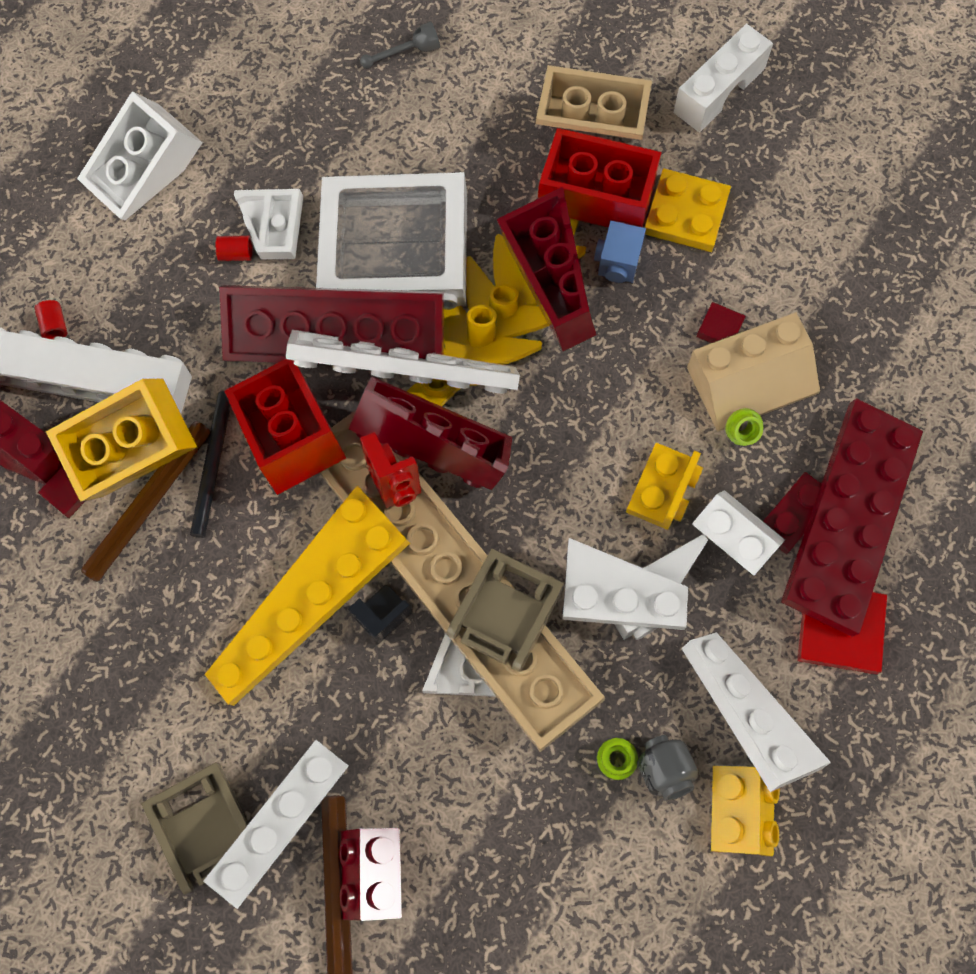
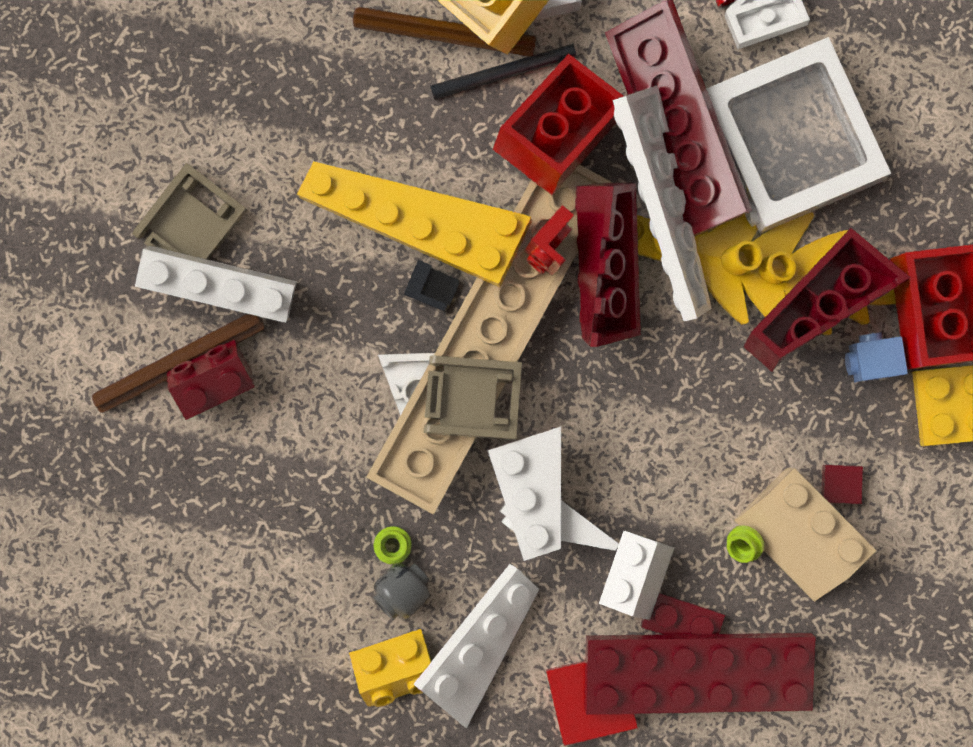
camera: 65 degrees right, 15 degrees up
(662, 486) = (657, 490): yellow bracket -> none

